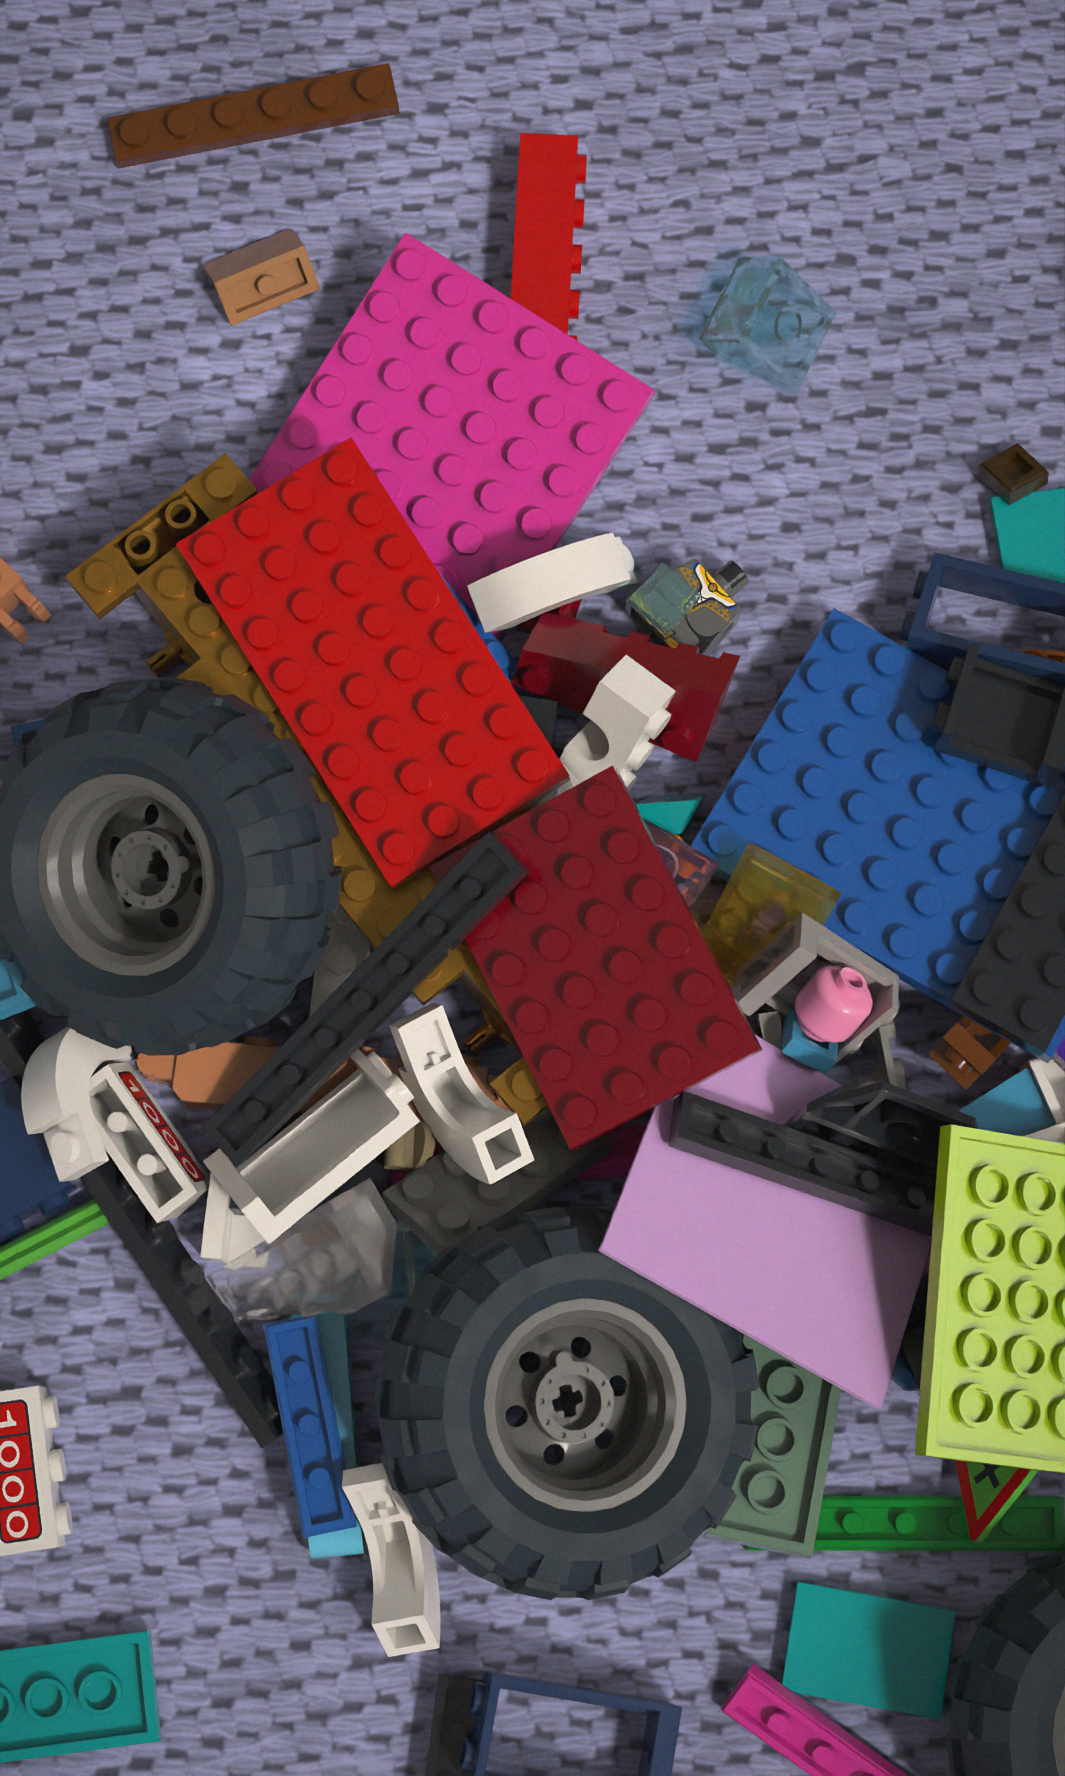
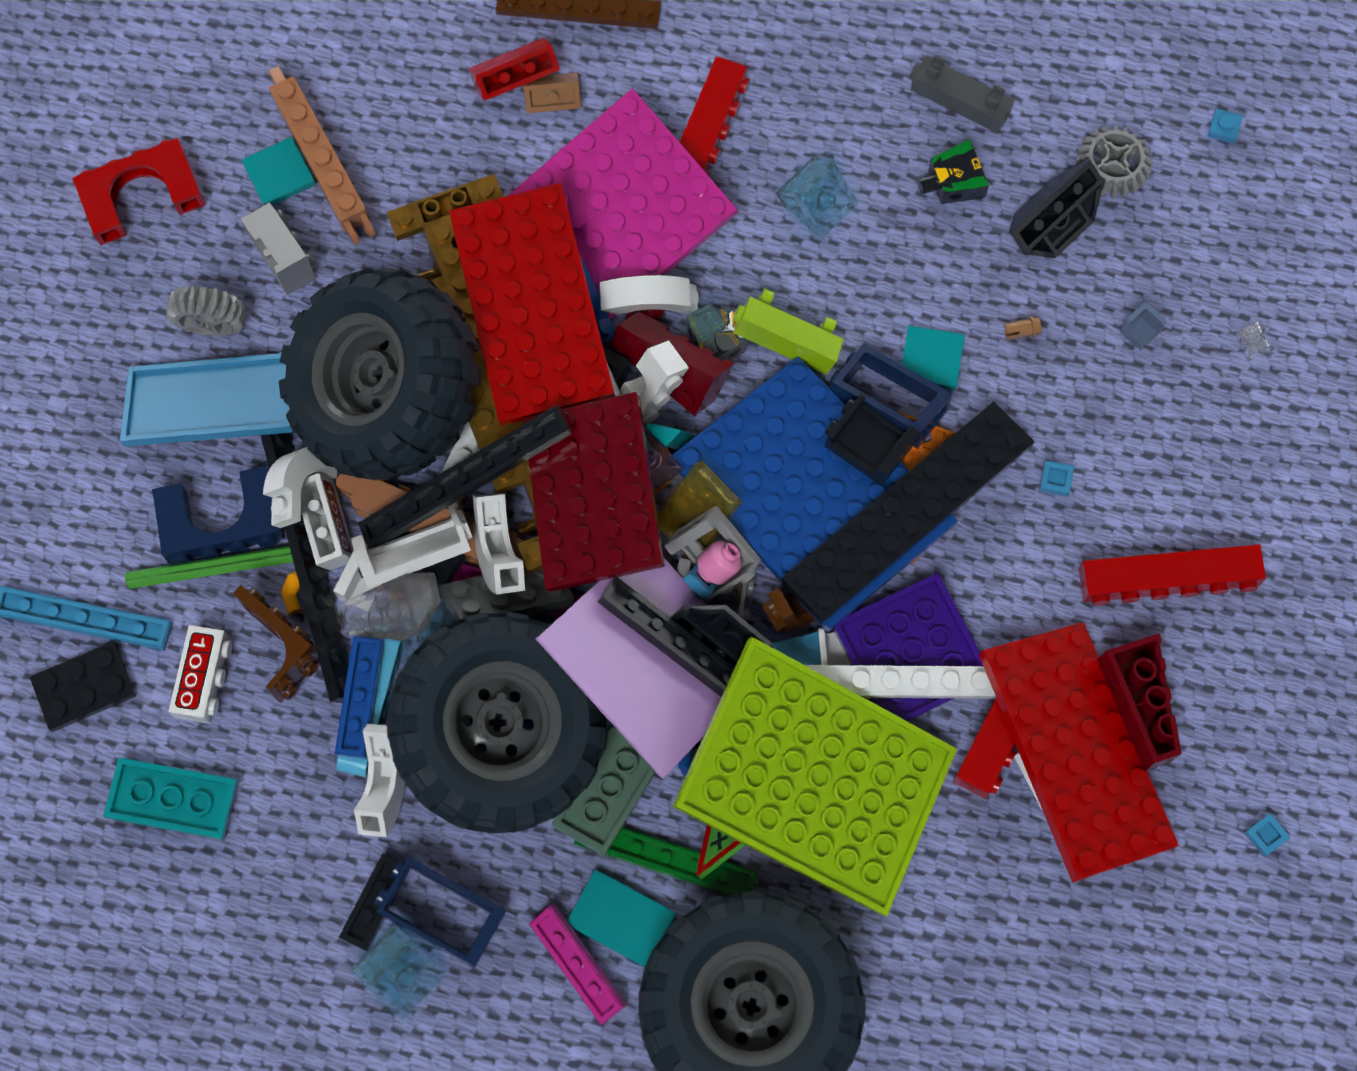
camera: 20 degrees right, 5 degrees down
(123, 1282) = (289, 594): none -> light orange arm
(184, 1384) = (300, 657): none -> reddish brown bracket
(186, 256) = (514, 69): none -> red brick
(411, 1149) = (463, 566): dark tan plate -> none
(805, 575) = (787, 333): none -> lime brick
(944, 76) = (961, 93): none -> dark grey brick
(982, 219) = (955, 175): none -> torso
(1013, 474) = (925, 316): dark brown tile -> none

